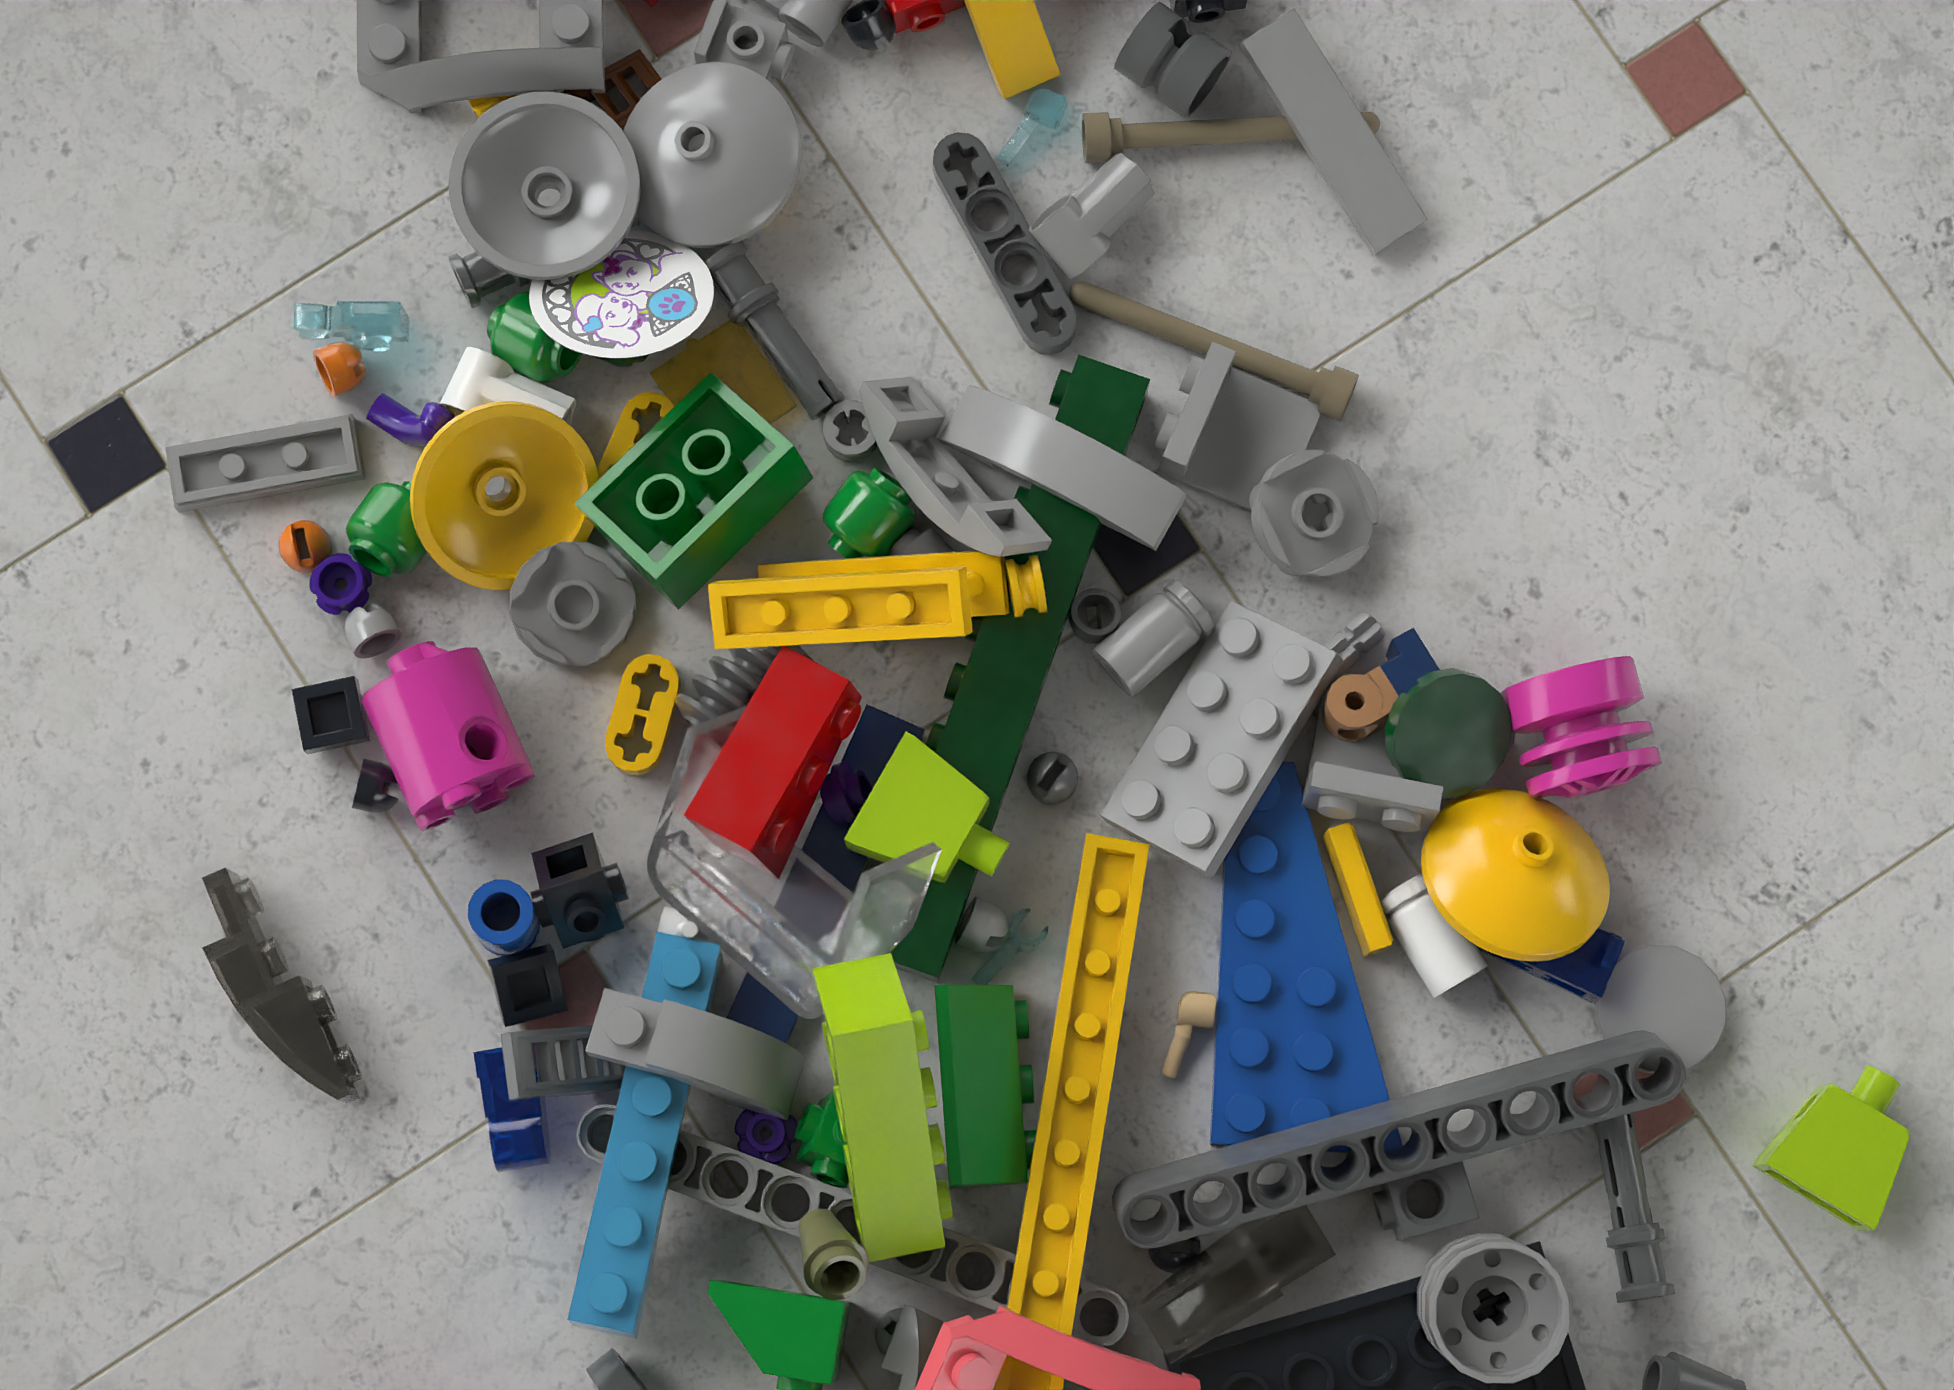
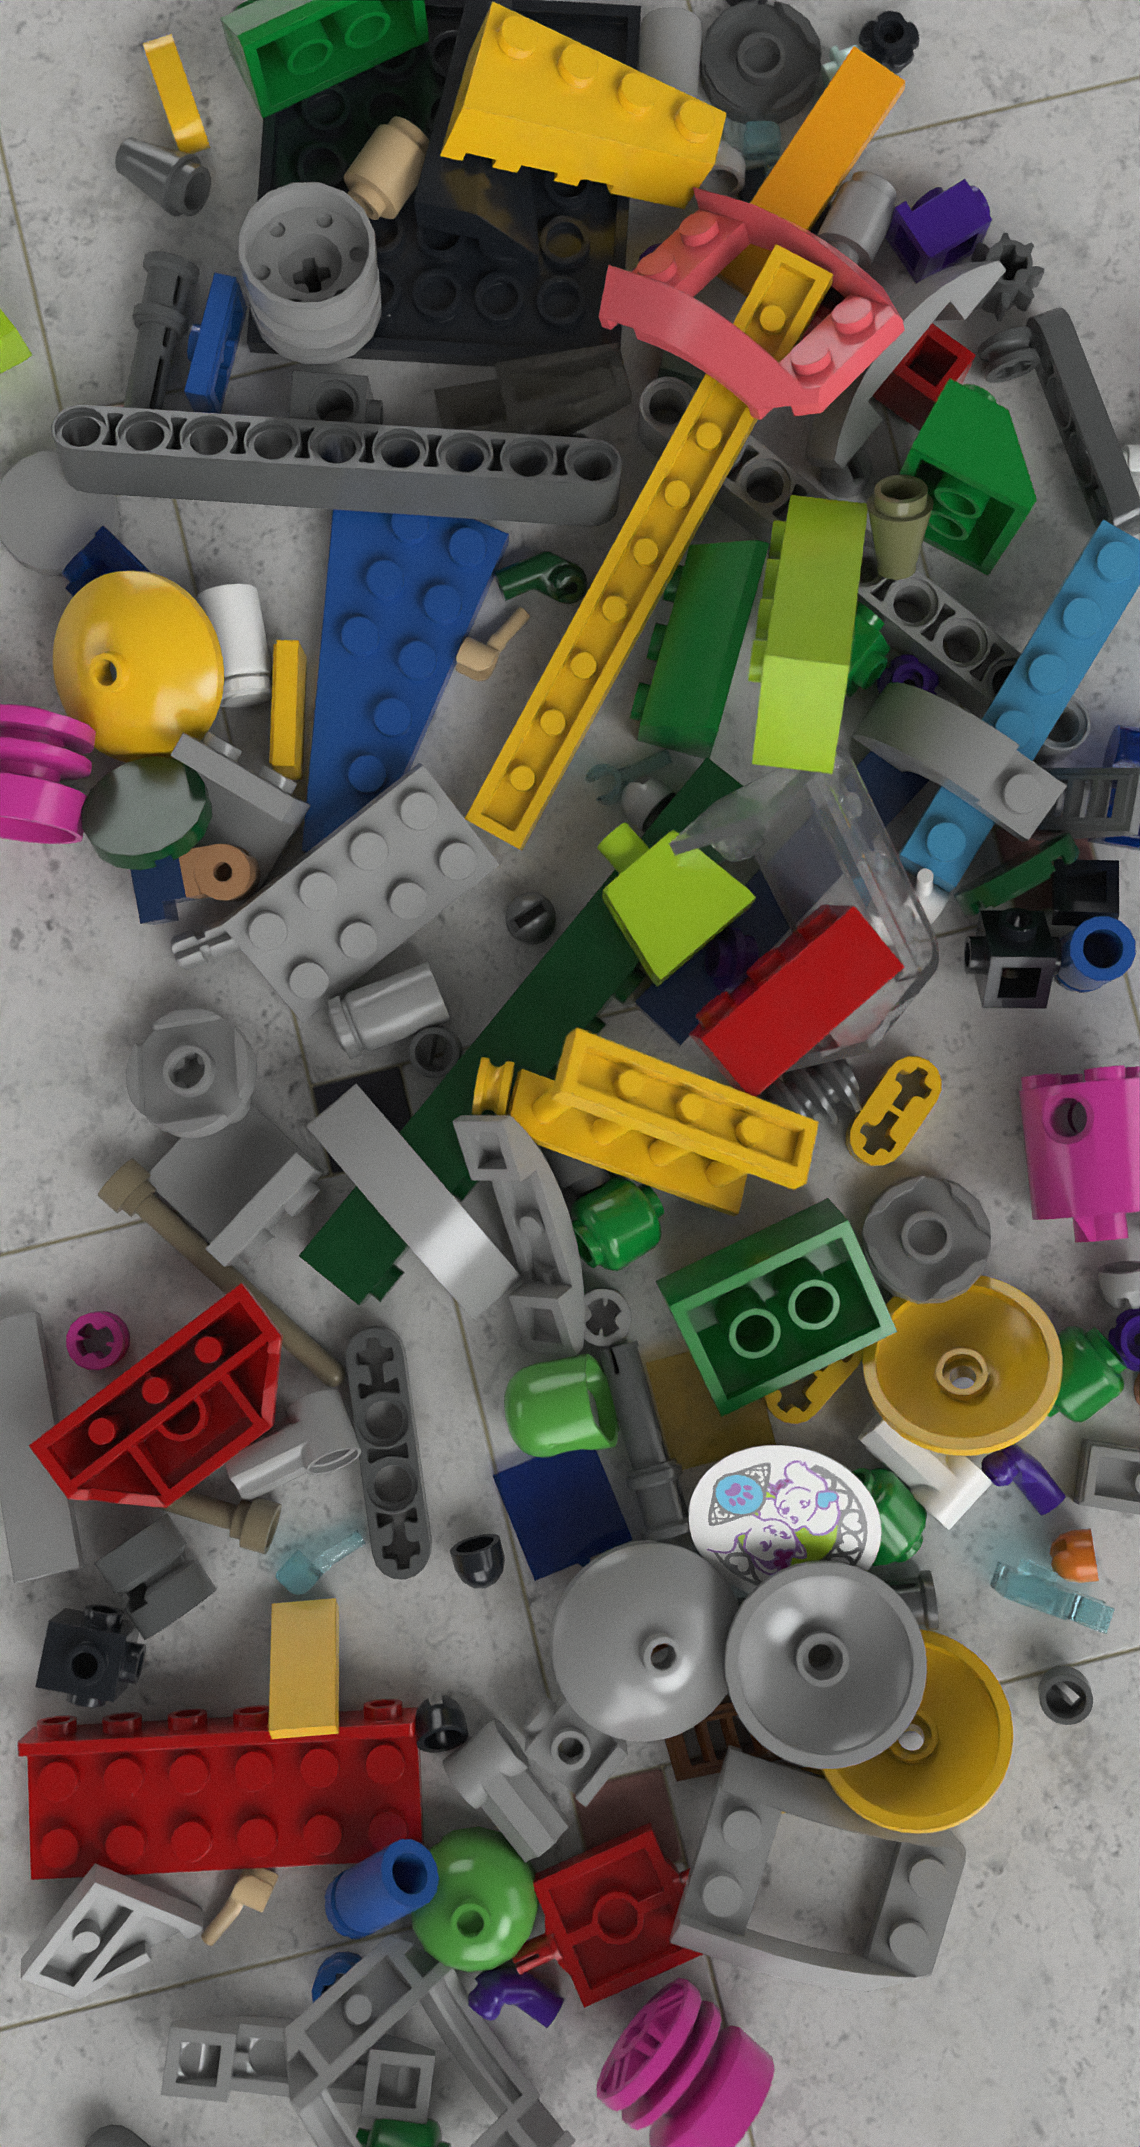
camera: 160 degrees left, 5 degrees up
(316, 233) = (1057, 1704): none -> dark grey hinge
(393, 148) = (962, 1756): none -> yellow dish
(601, 963) = (1016, 874): none -> dark green tile
(827, 250) = (562, 1510): none -> clear blue piece
(869, 324) = (552, 1411): none -> bright green helmet
(887, 176) = (479, 1560): none -> black hinge
(1160, 1119) = (546, 574): none -> dark green arm
(1211, 203) = (172, 1411): none -> red wedge
(1313, 266) = (97, 1359): none -> dark pink bush
(1571, 1225) = (214, 345): none -> blue plate

